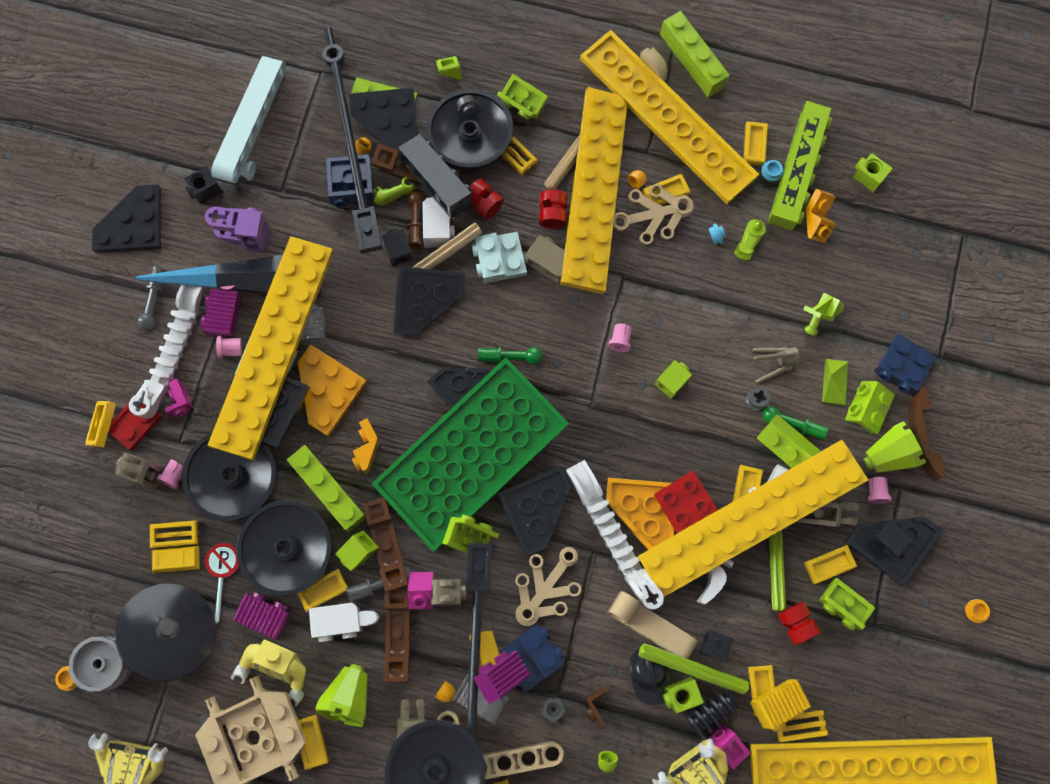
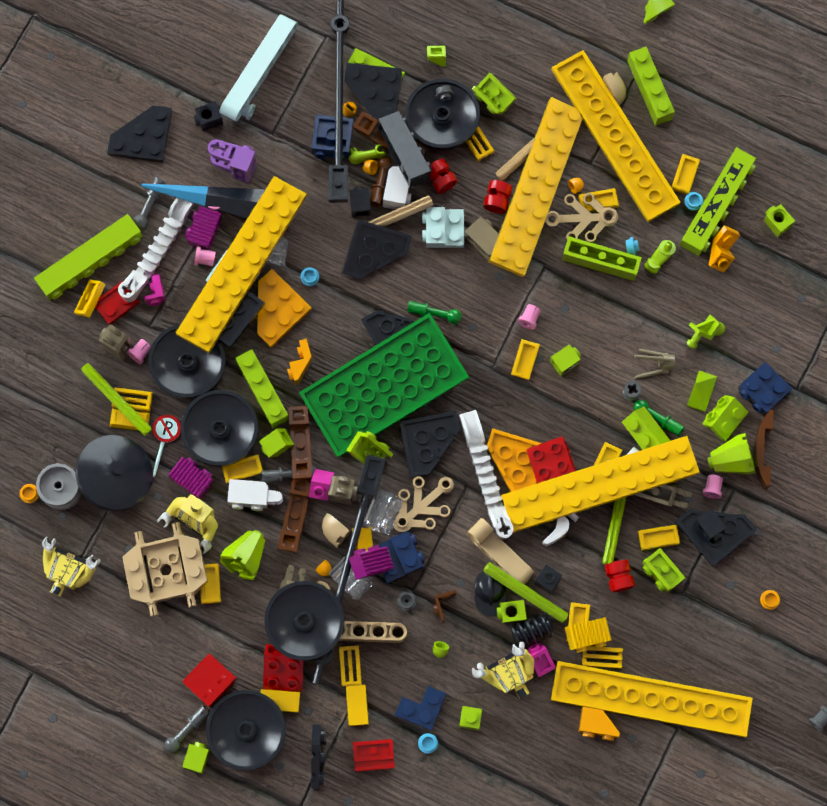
camera: 15 degrees right, 0 degrees up
(89, 376) = (88, 257): none -> lime brick
(153, 539) = (116, 399): none -> lime axle
(357, 344) = (309, 276): none -> medium azure plate
(400, 205) = (370, 166): none -> light orange hinge
(447, 641) = (334, 530): none -> tan brick
(502, 608) = (383, 512): none -> clear brick
(626, 388) = (525, 359): none -> yellow tile
(687, 254) = (601, 258): none -> lime brick

